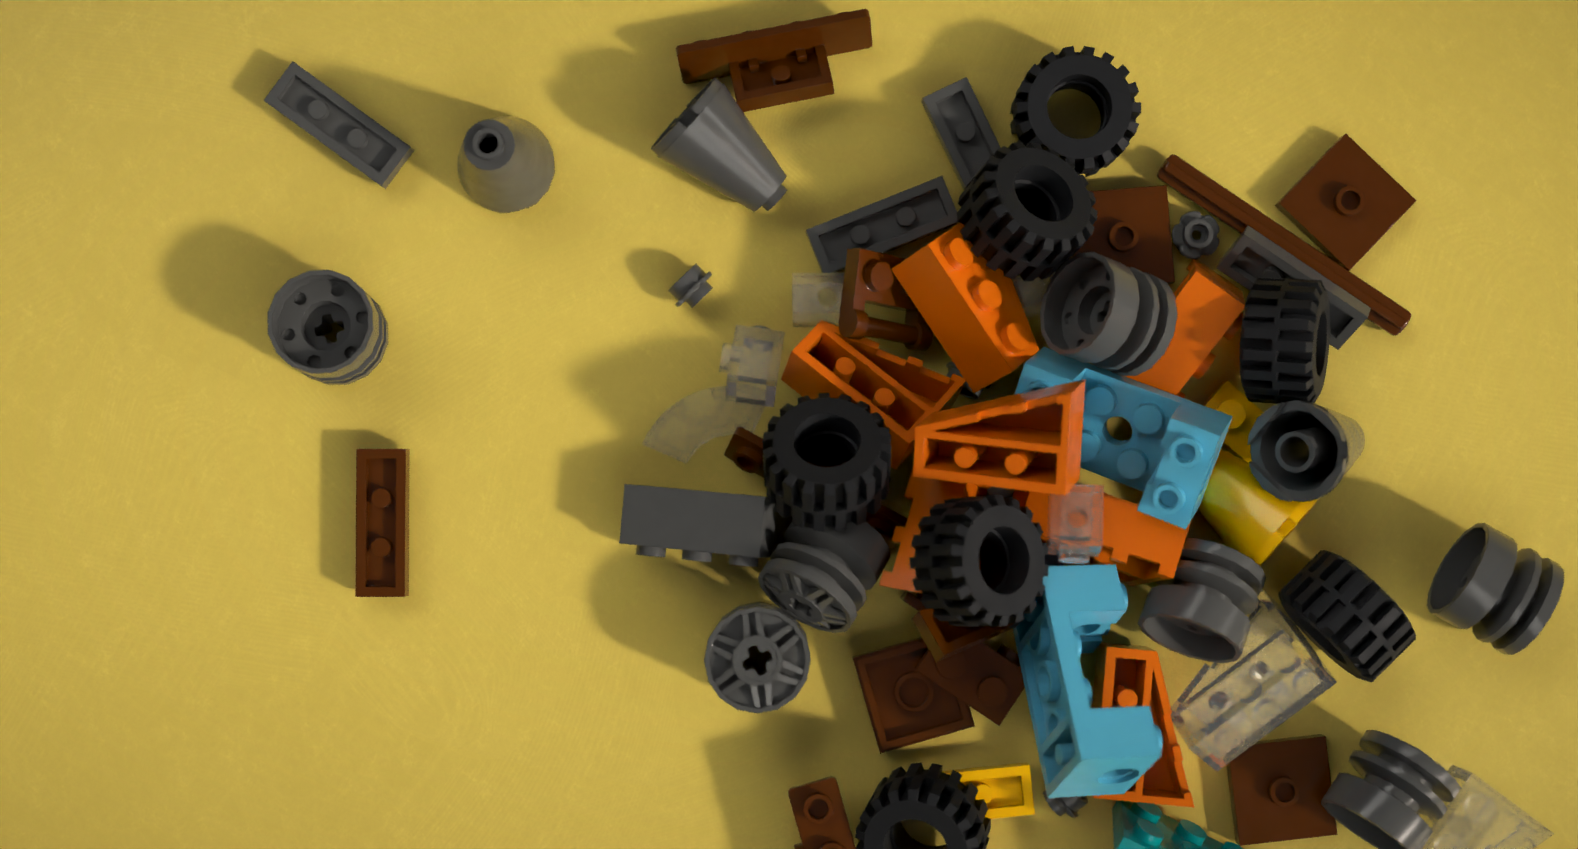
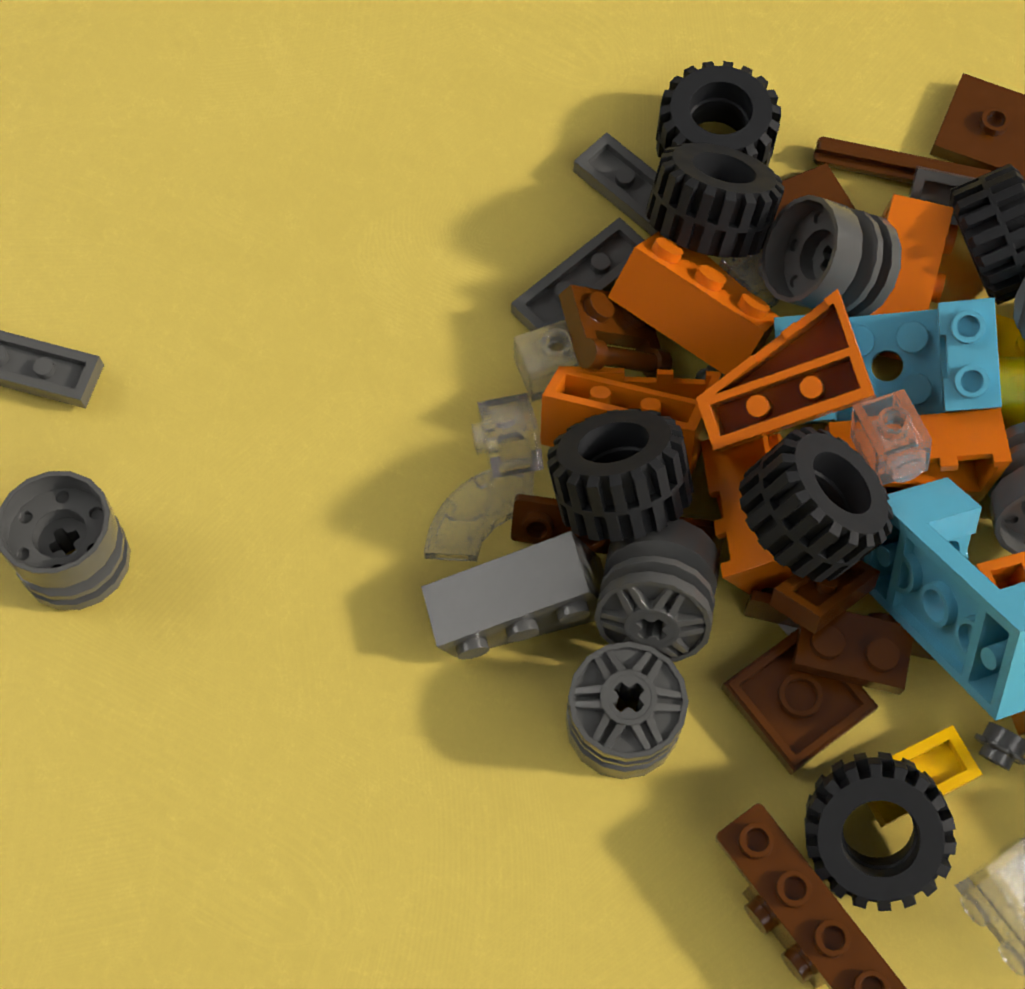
camera: 20 degrees left, 20 degrees down
(382, 522) = (177, 725): reddish brown plate -> none
(505, 164) = (194, 337): dark grey cone -> none
(691, 286) = (419, 392): dark grey plate -> none
(722, 149) = (404, 258): dark grey cone -> none
(779, 61) = (426, 173): reddish brown bracket -> none
(1183, 238) = (866, 202): dark grey plate -> none

